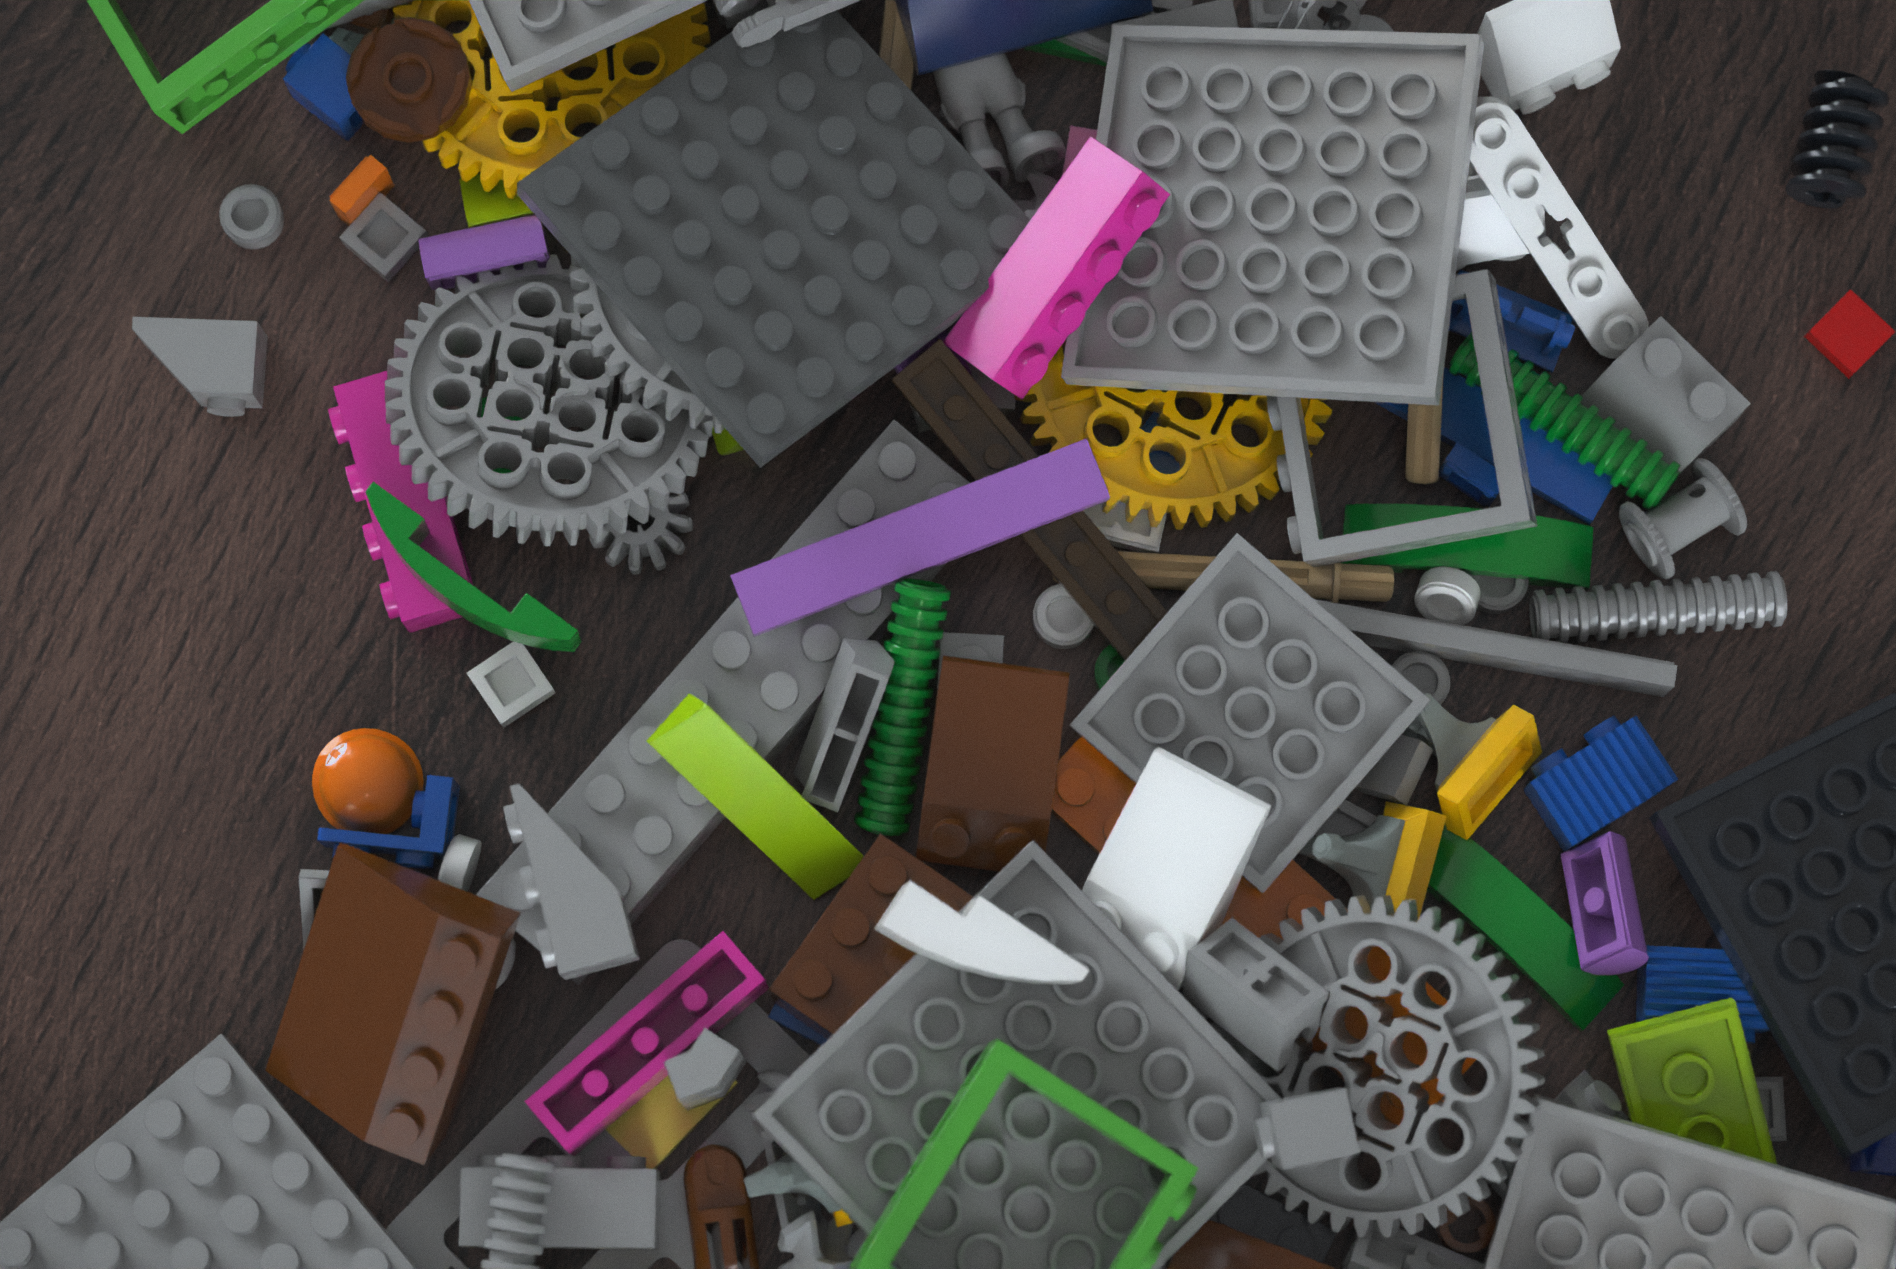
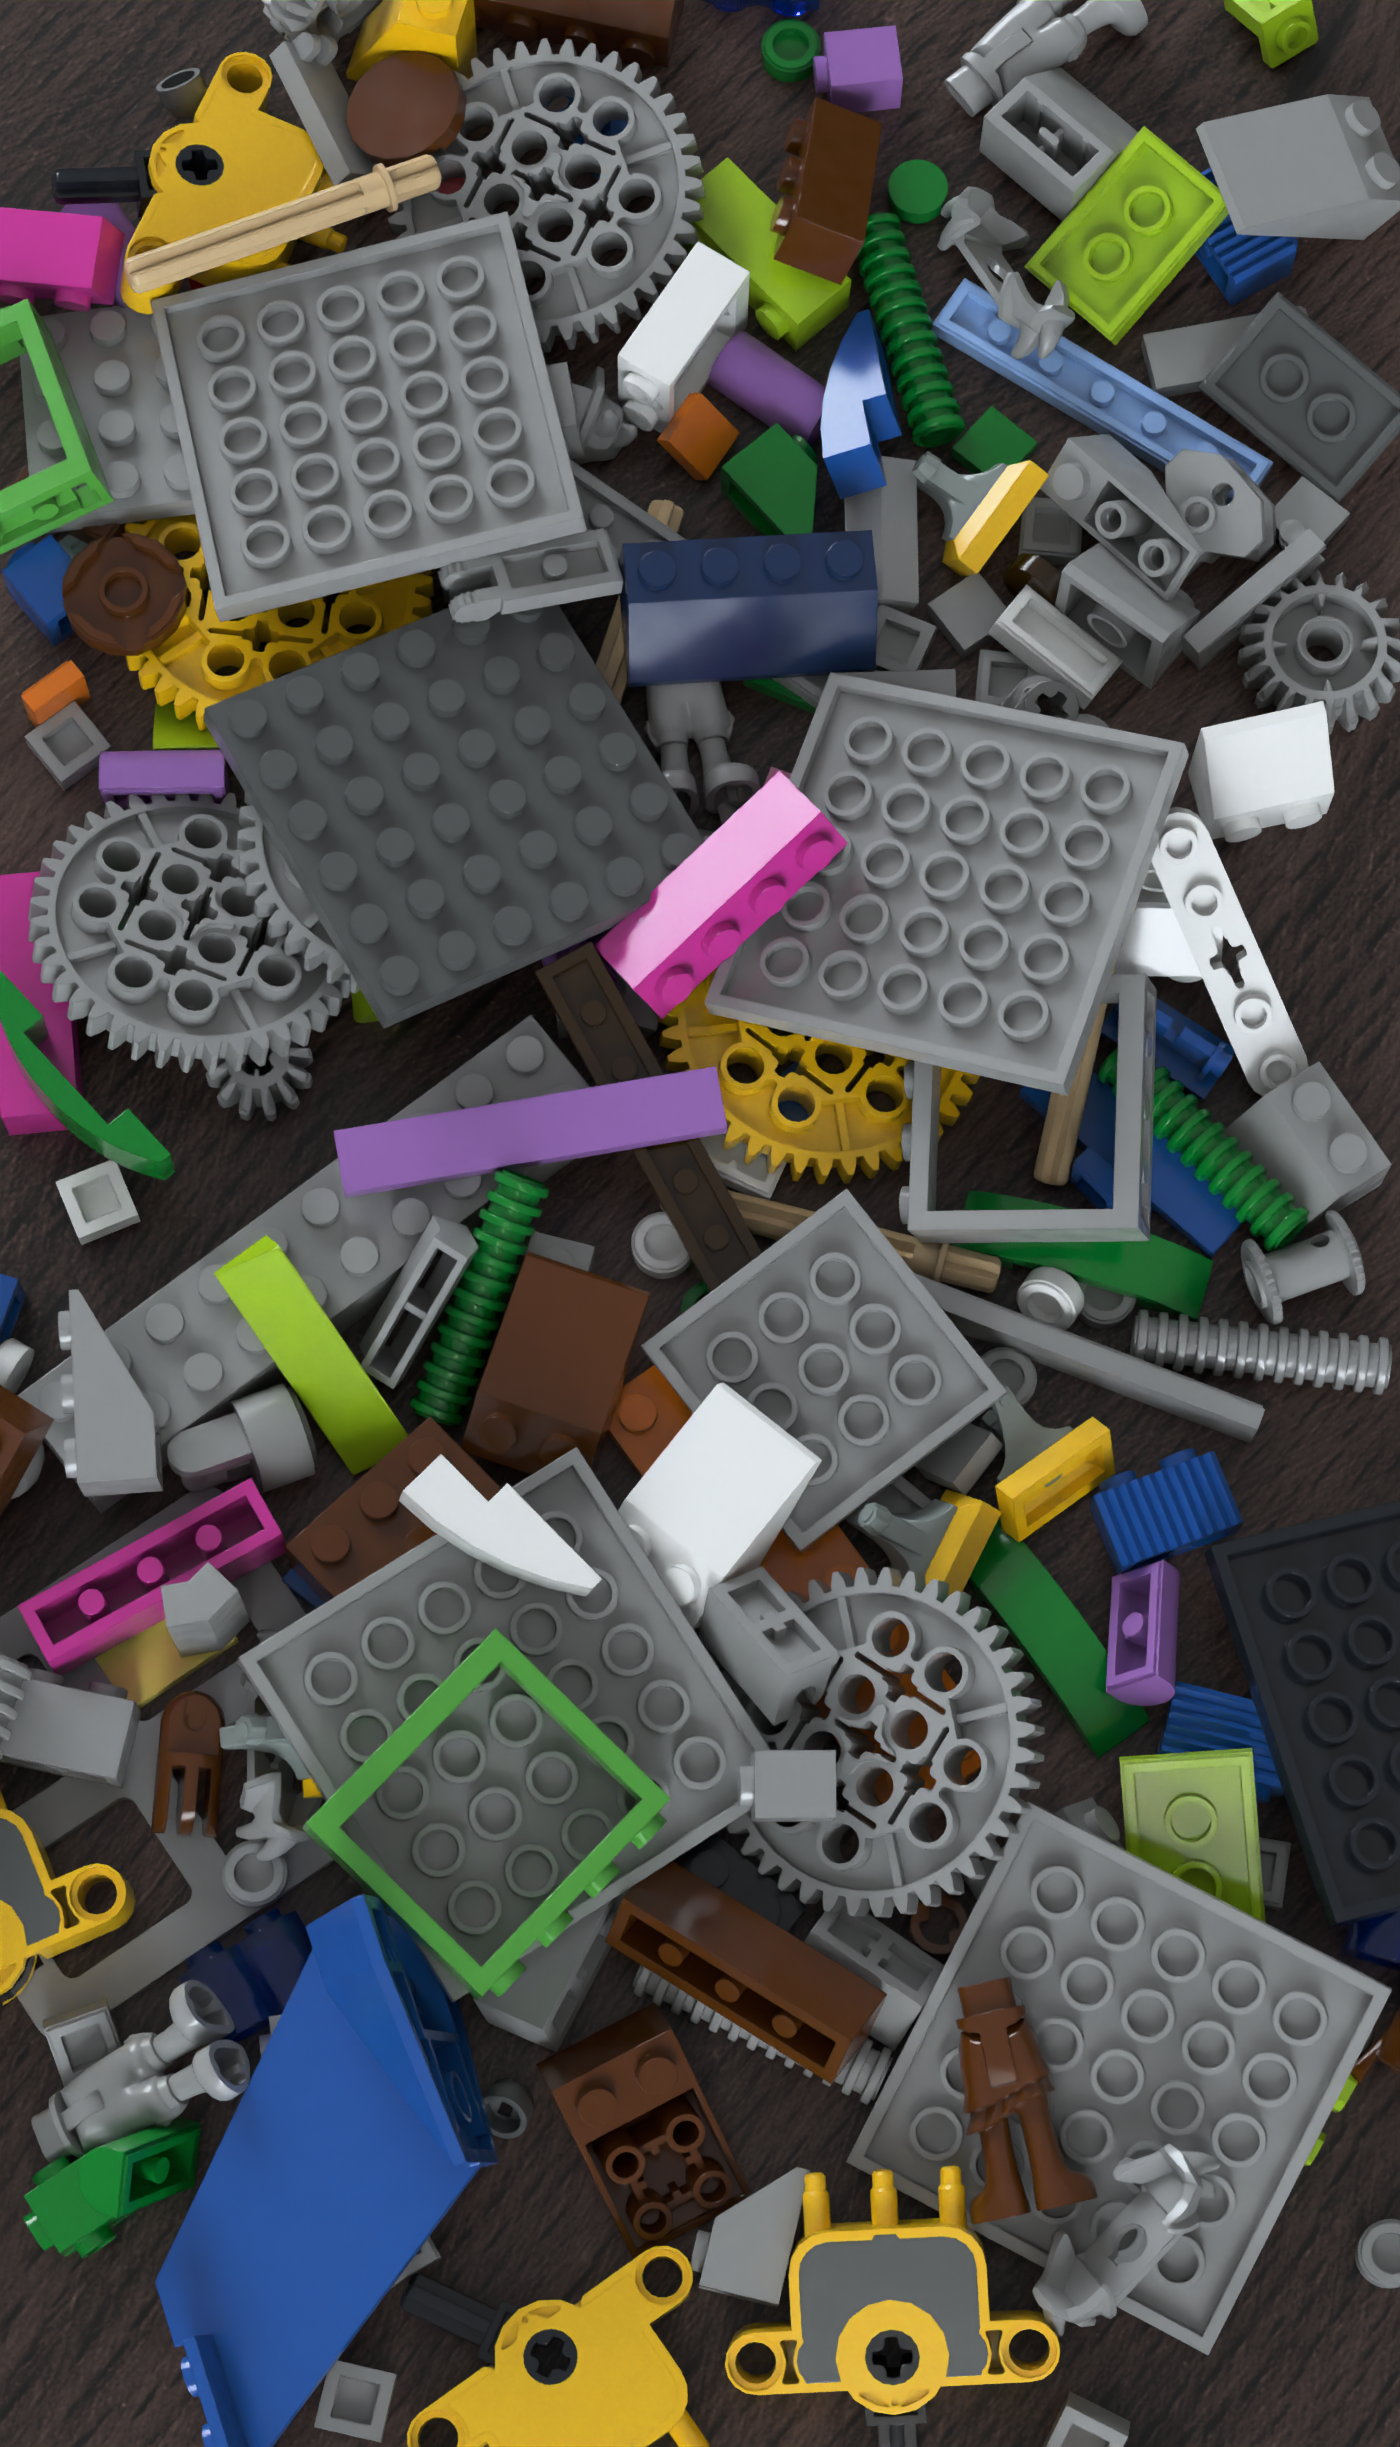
camera: 10 degrees right, 5 degrees down
(720, 882) = (259, 1438): none -> light grey piece

